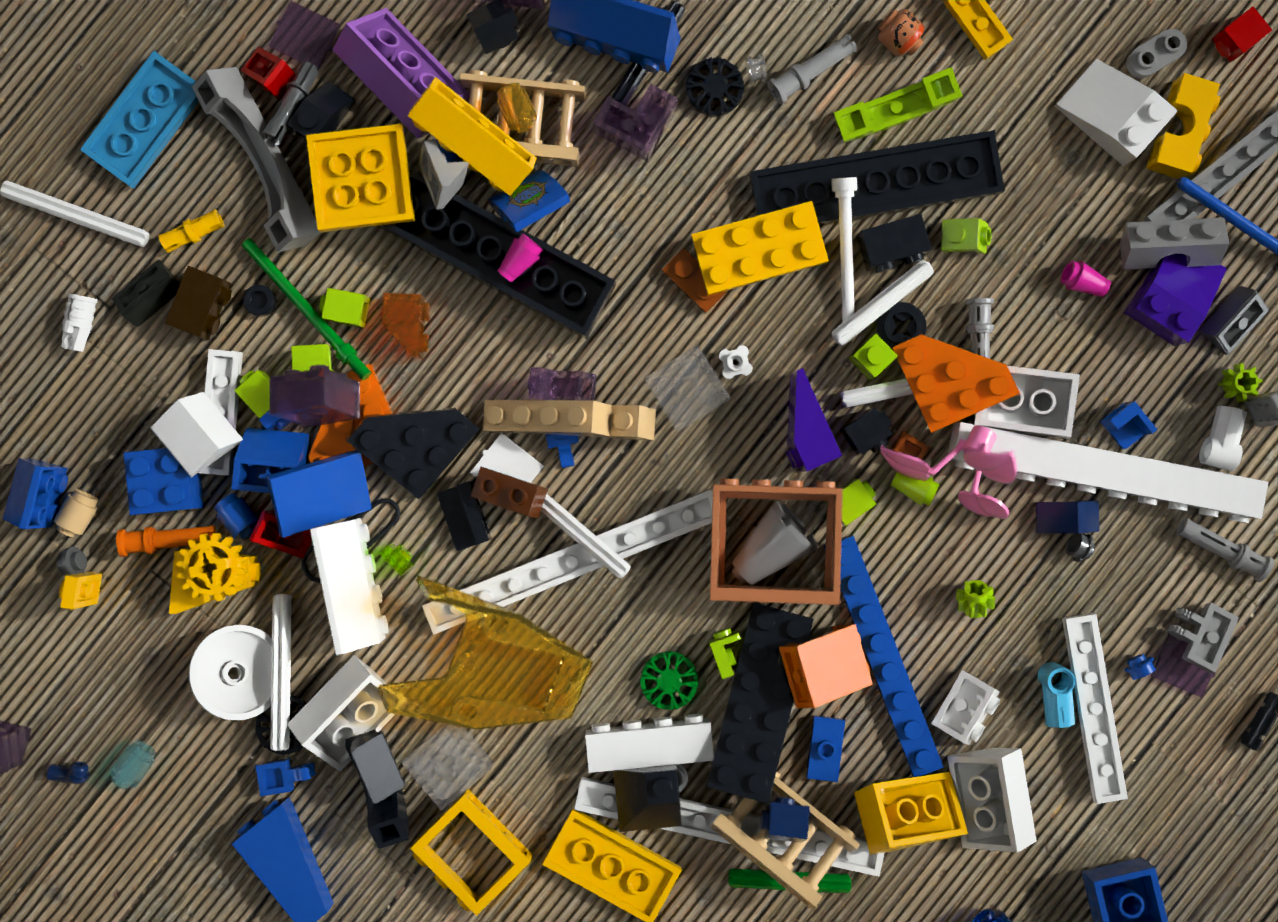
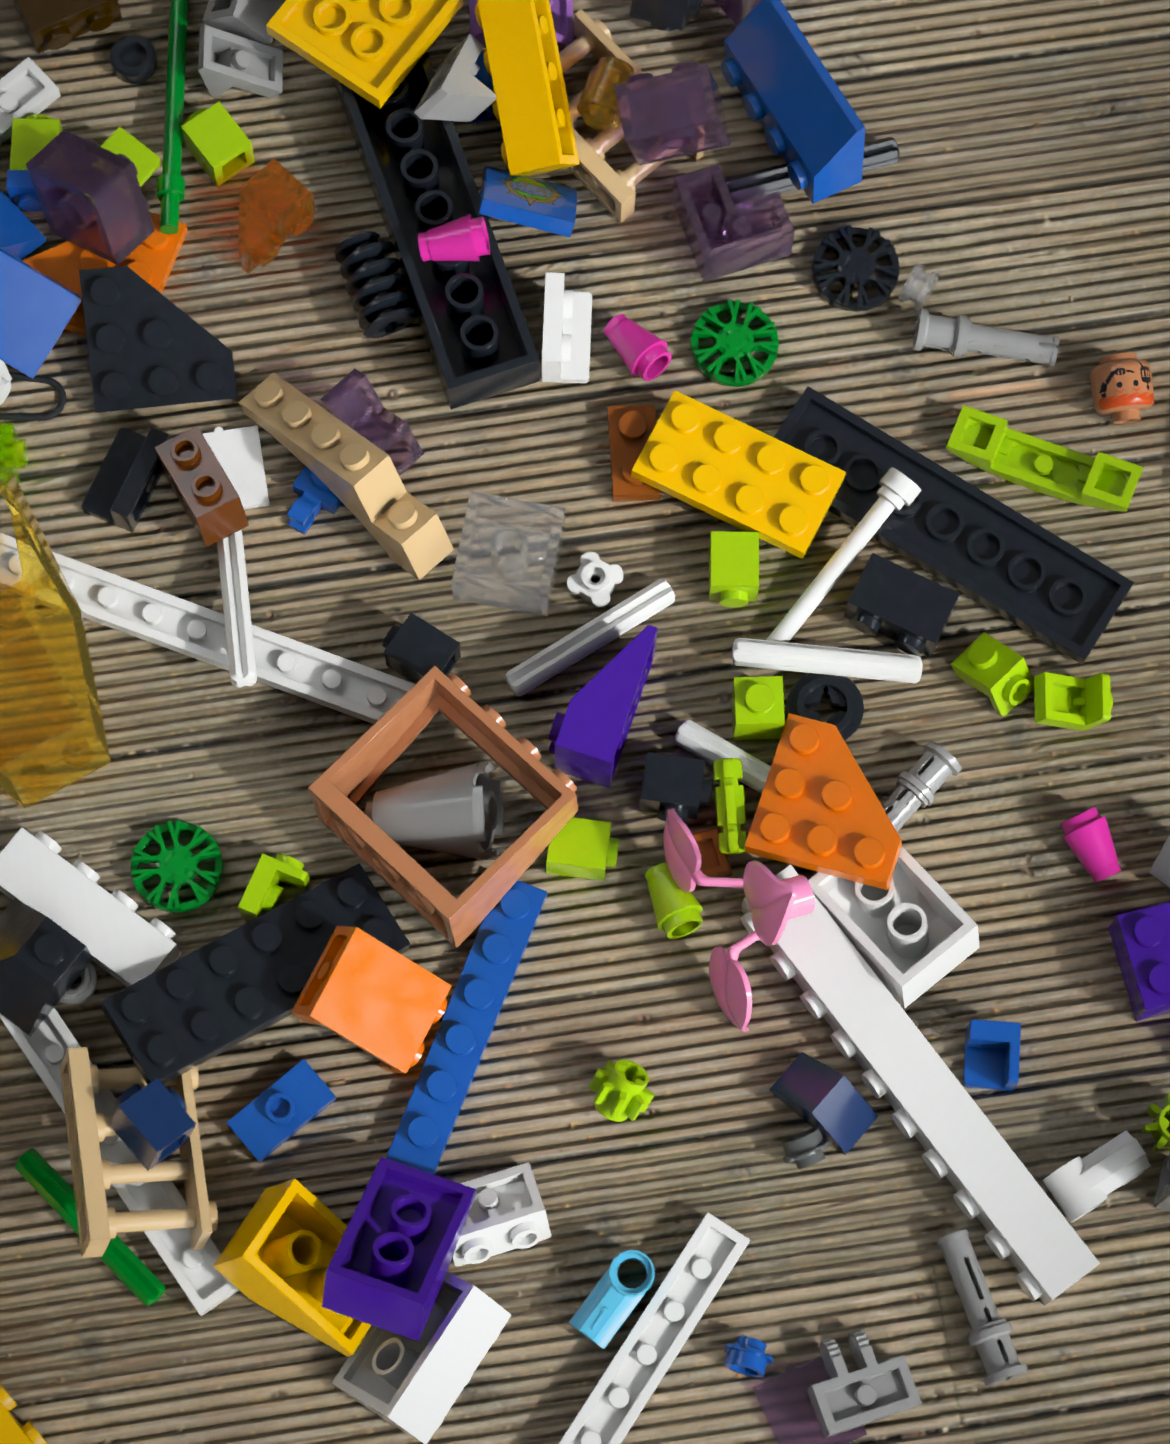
camera: 45 degrees right, 15 degrees down
(317, 257) = (239, 63): none -> light grey slope
(493, 311) = (372, 285): none -> black piece
(564, 91) = (672, 113): none -> clear purple brick
(607, 250) = (565, 332): none -> white bracket
(650, 226) = (638, 348): none -> dark pink cone
(689, 476) = (418, 647): none -> black brick
(691, 180) = (734, 343): none -> green wheel
(759, 392) = (590, 637): none -> white axle
(798, 297) = (733, 568): none -> lime brick
(903, 417) = (730, 805): none -> lime axle
(949, 770) = (397, 1248): none -> dark purple slope
(1017, 216) = (1072, 700): none -> lime bracket

